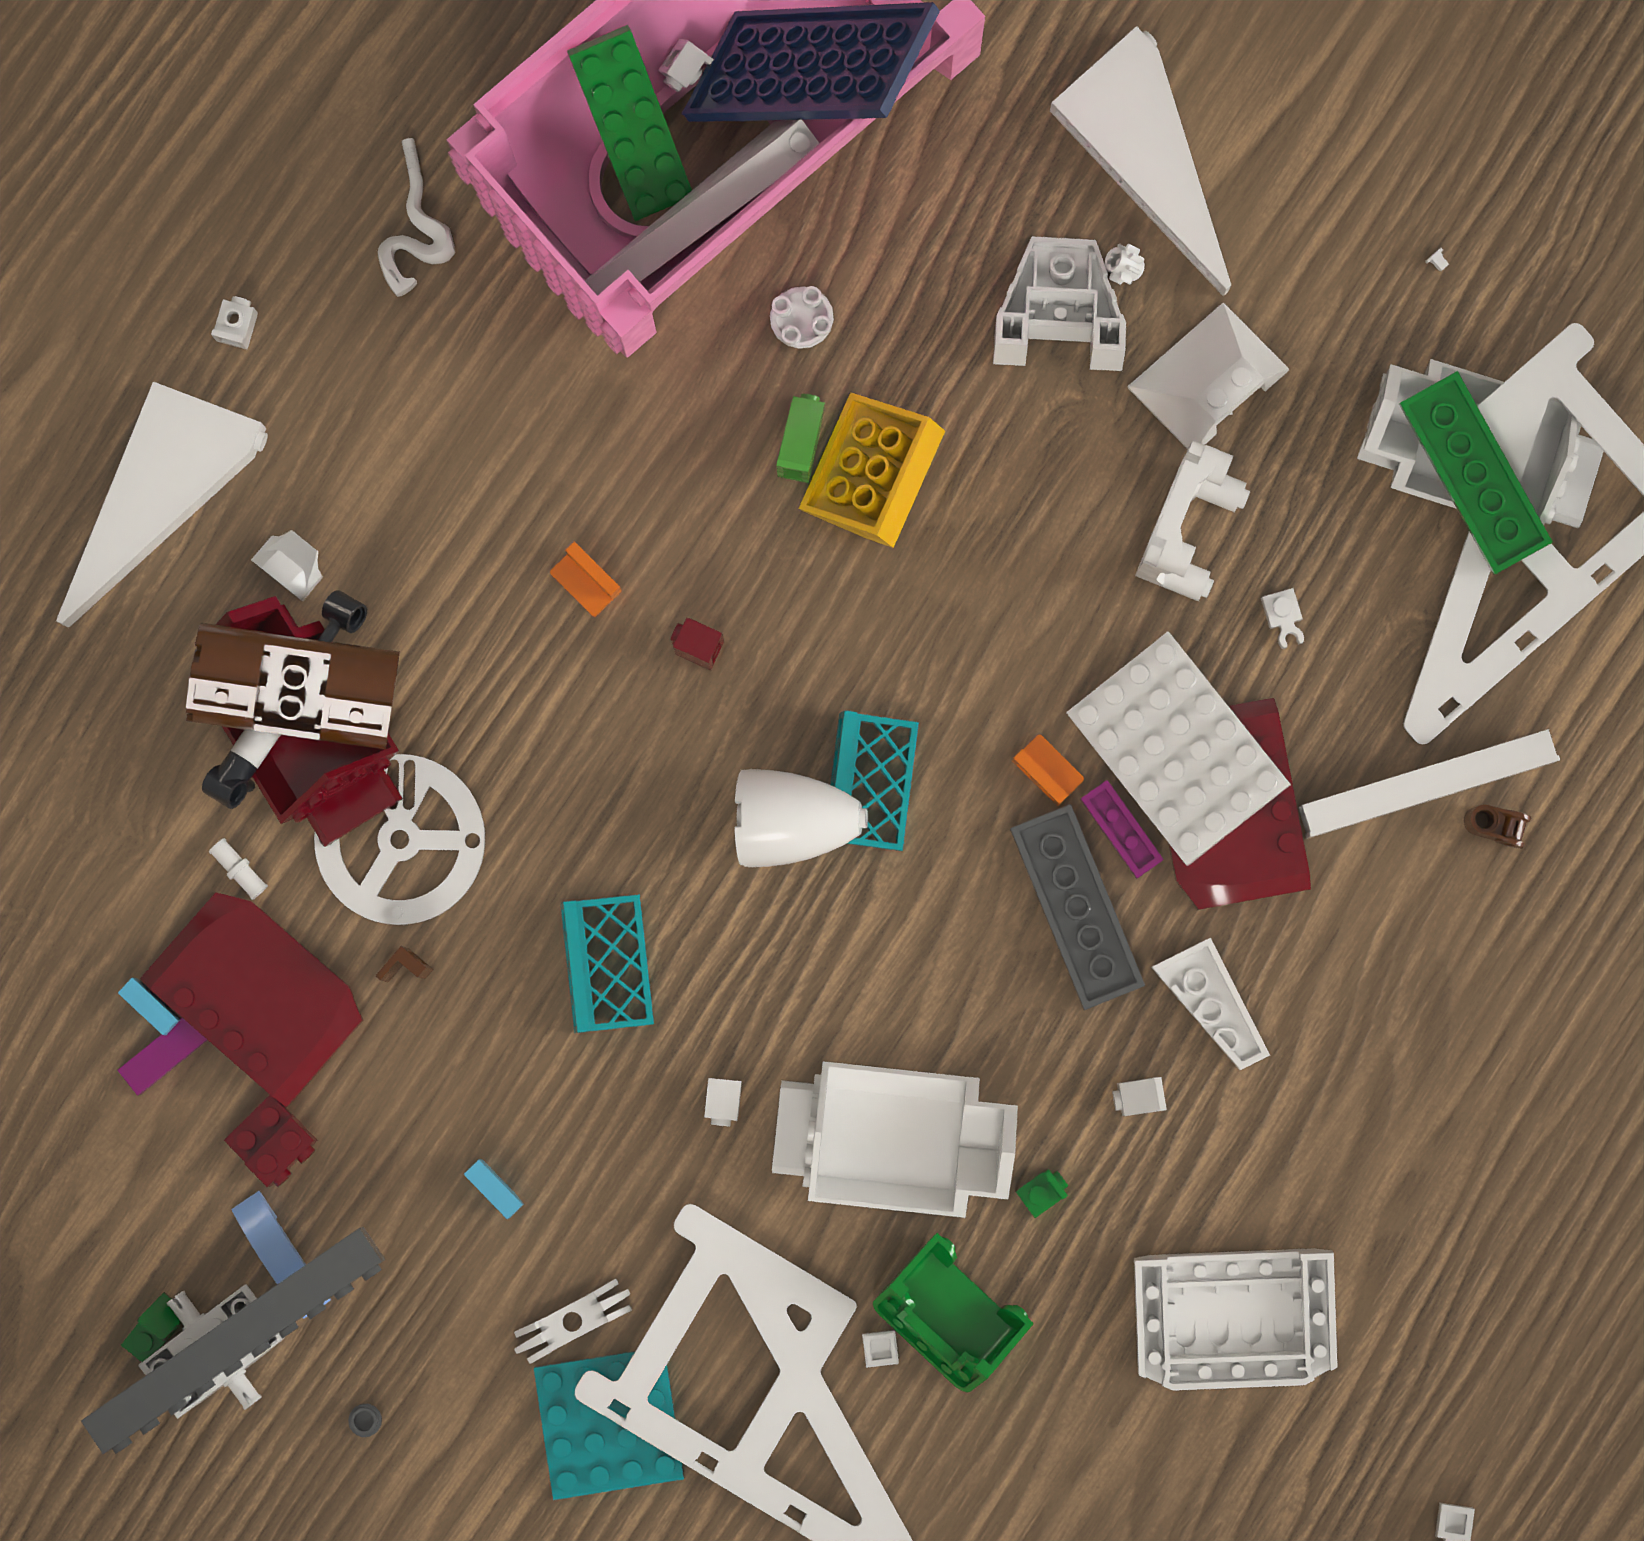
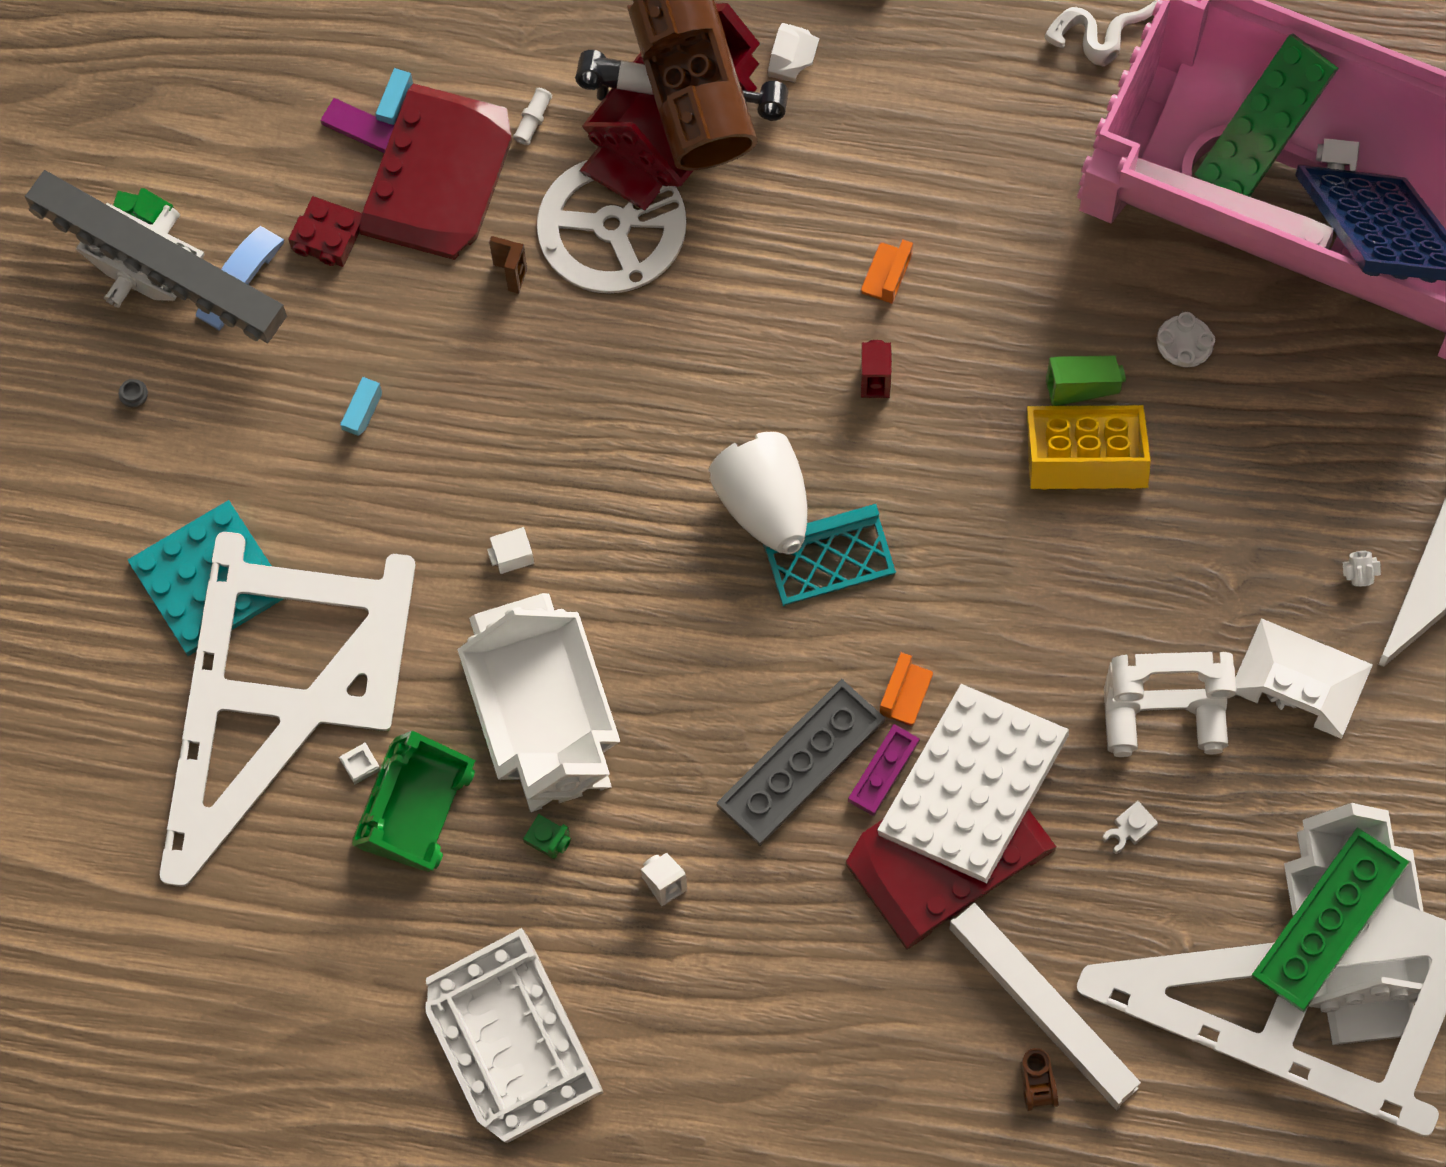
camera: 65 degrees right, 15 degrees down
(578, 966) = (564, 399): teal fence -> none
(591, 1315) = (291, 525): white piece -> none
(1061, 296) = (1306, 529): white wedge -> none
(1209, 994) = (779, 898): white wing -> none

